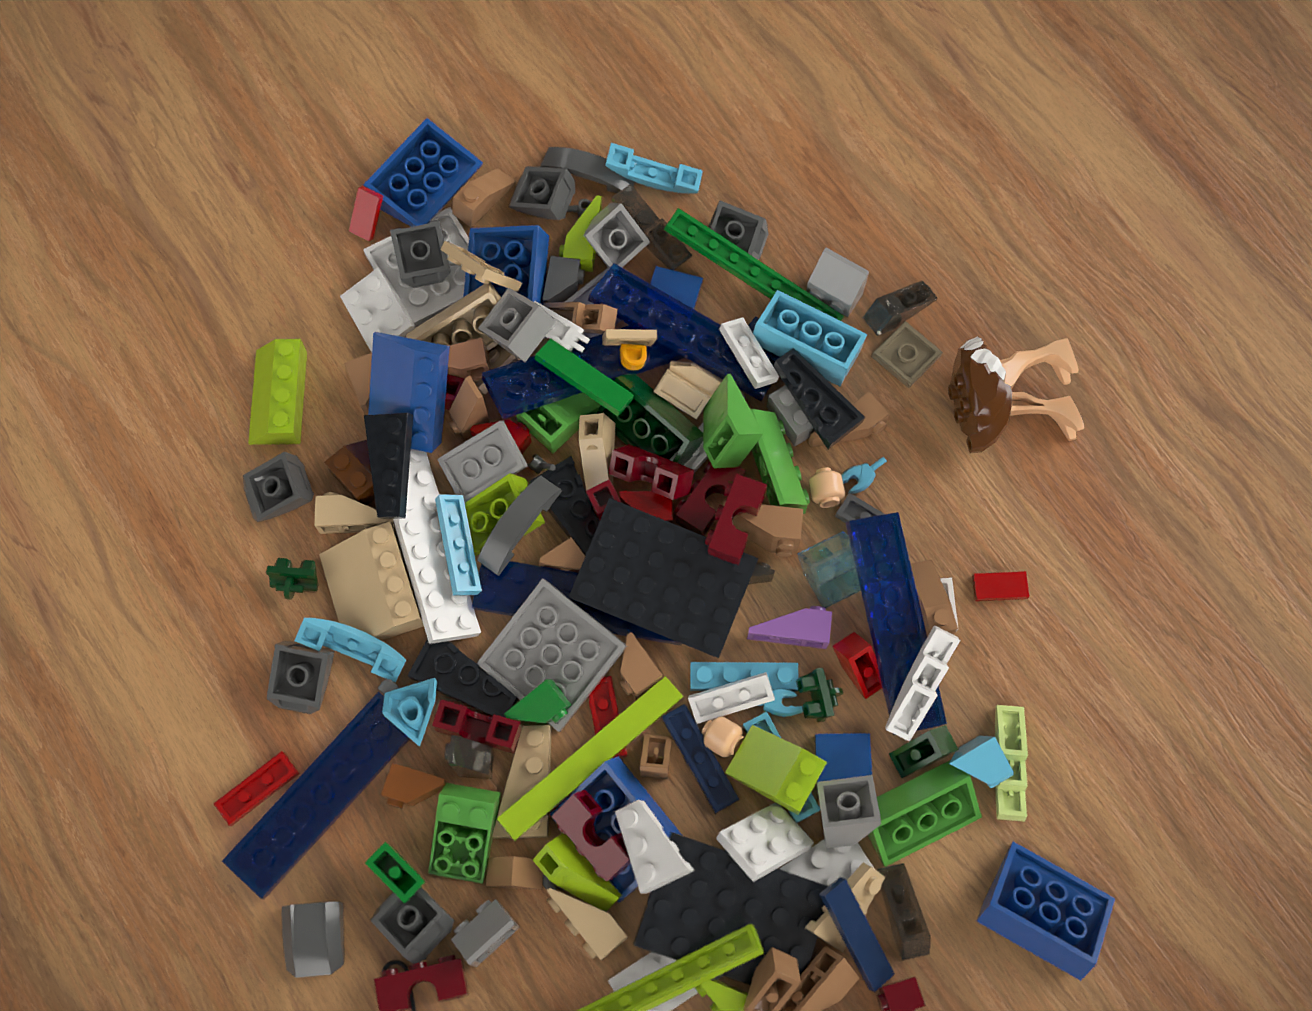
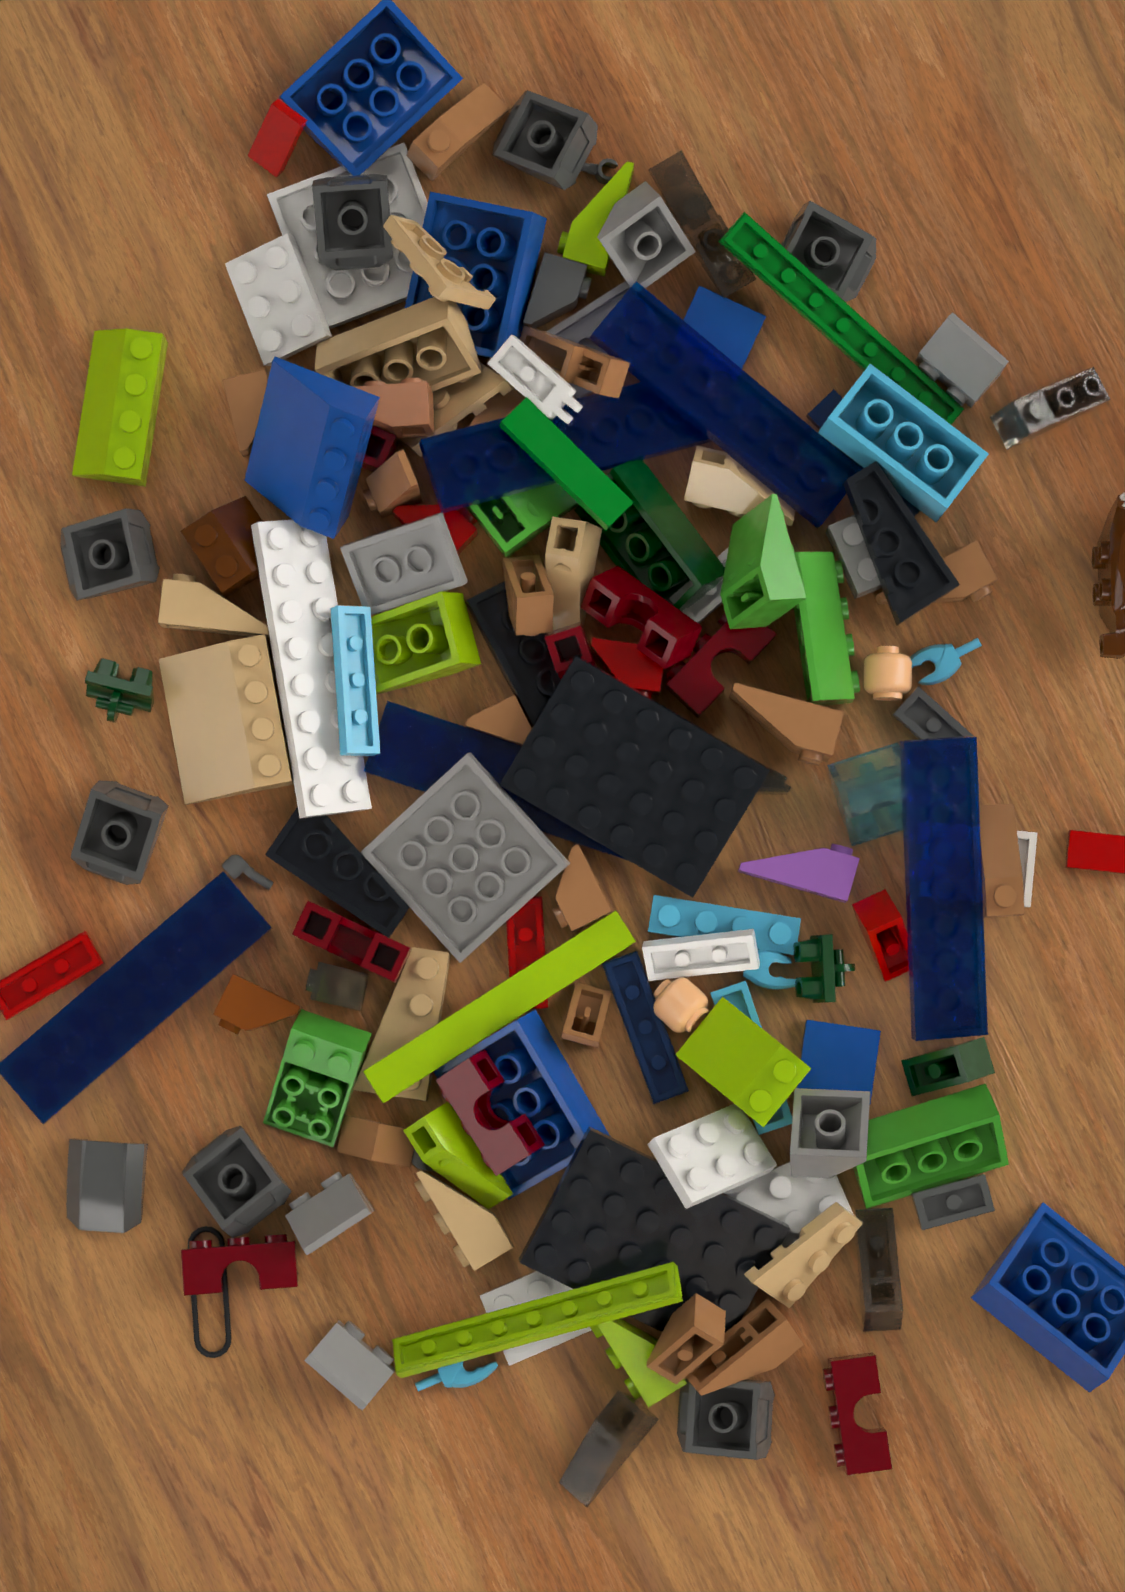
camera: 10 degrees right, 15 degrees up
(353, 643) = (196, 799): medium azure slope -> none
(389, 457) = (275, 541): black wing -> none
(395, 872) = (222, 1119): green slope -> none
(411, 708) = (266, 904): medium azure slope -> none
(515, 523) = (442, 666): dark grey slope -> none
(517, 324) = (480, 373): light grey slope -> none
(538, 465) = (485, 574): dark grey hand -> none
(541, 705) = (441, 928): green slope -> none
(571, 471) = (528, 595): none -> medium nougat slope
(585, 166) = (622, 105): dark grey slope -> none
(616, 337) = (641, 408): tan tile -> none
(633, 356) = (642, 436): light orange tile -> none
(649, 849) = (558, 1151): white wing -> none
(651, 173) = (719, 128): medium azure slope -> none
(681, 394) = (704, 503): tan tile -> none
(742, 496) = (760, 685): dark red arch -> none
(749, 353) = (811, 455): white plate -> none
(857, 934) = (810, 1291): dark blue tile -> none
(907, 354) = (1045, 482): dark tan tile -> none
(921, 682) = (960, 979): white slope -> none
(947, 850) = (953, 1202): none -> dark grey plate
(984, 760) = (1021, 1094): medium azure slope -> none
(1011, 736) = (1062, 1098): yellowish green slope -> none

